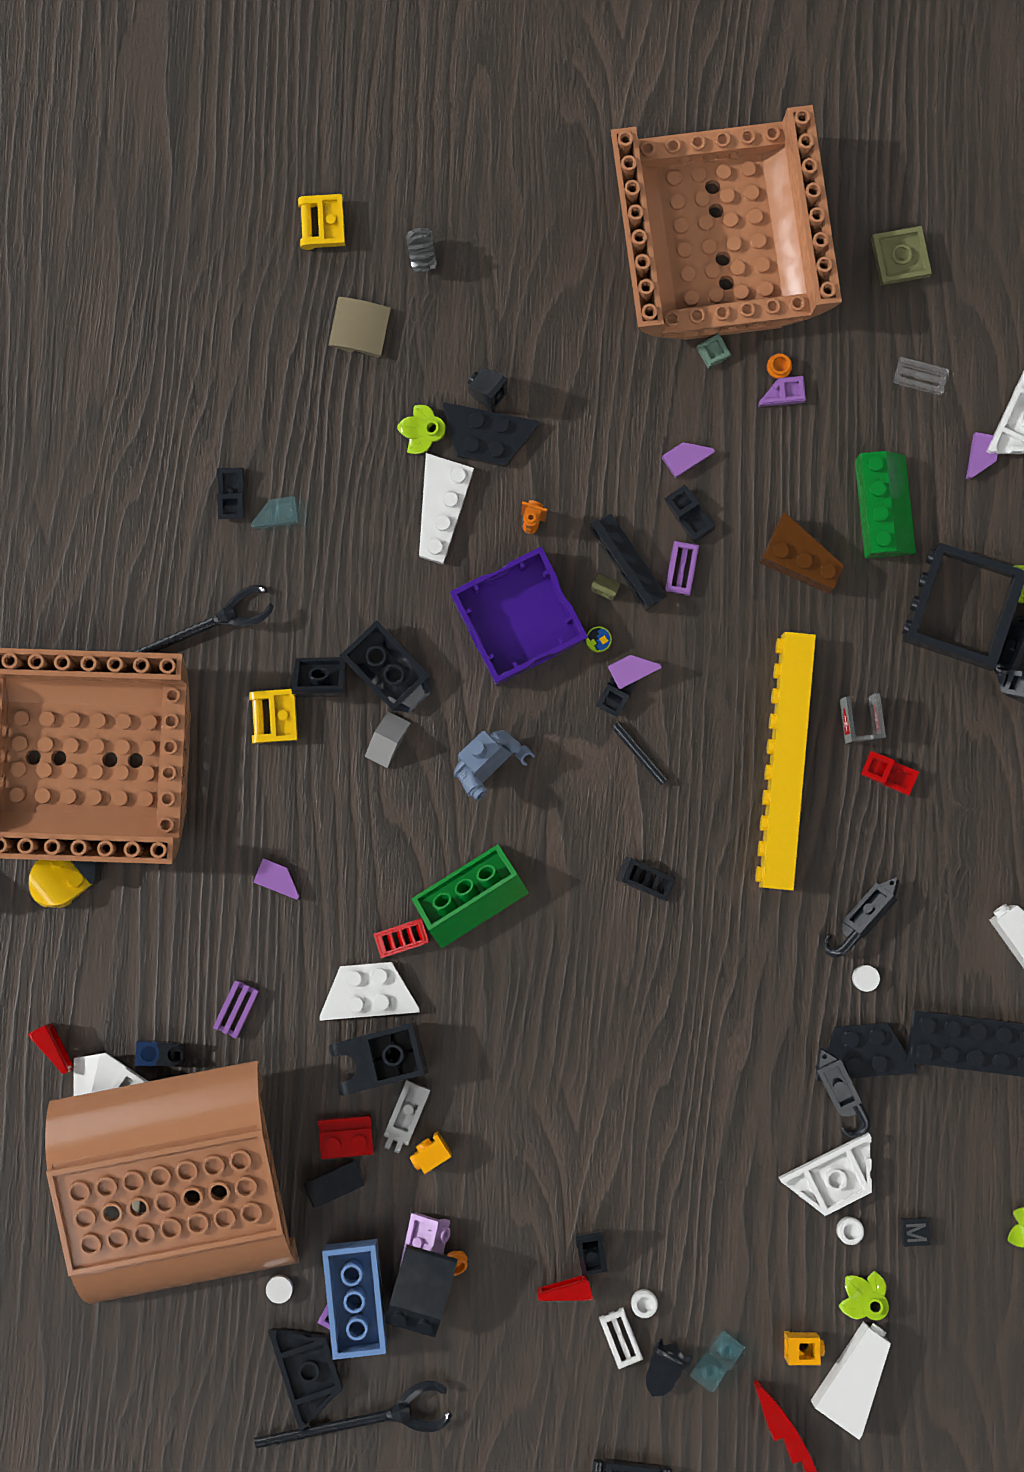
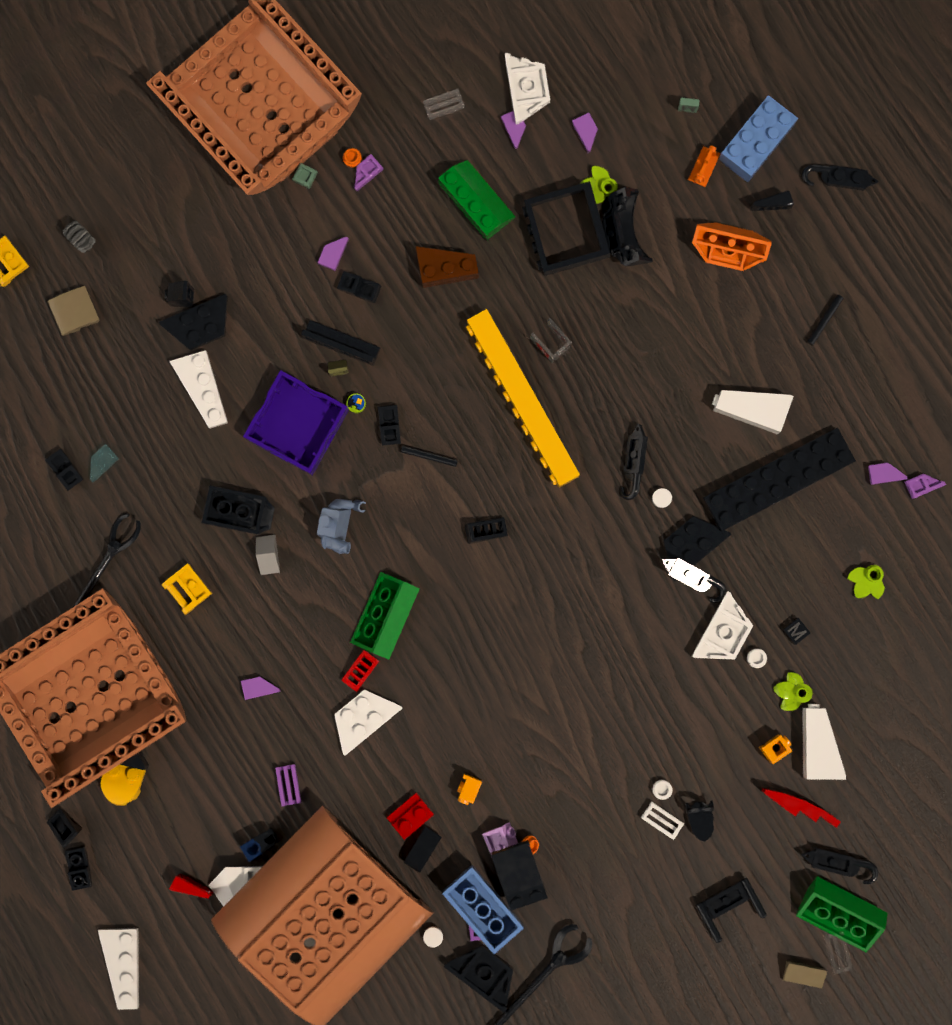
camera: 25 degrees left, 0 degrees up
(319, 677) = (199, 545): black slope -> none
(374, 1061) = (393, 755): black brick -> none
(406, 1114) = (437, 776): light grey hinge -> none
(417, 429) = (154, 349): lime plate -> none
(533, 514) = (262, 354): orange hinge -> none
(567, 1290) = (612, 811): red slope -> none
(591, 1252) = (608, 781): black slope -> none
(631, 669) = (388, 407): medium lavender tile -> none
(677, 589) = (383, 338): medium lavender tile -> none
(716, 1361) = (730, 793): clear light blue slope -> none
(889, 773) = (591, 362): red slope -> none
(901, 255) = (380, 38): olive plate -> none

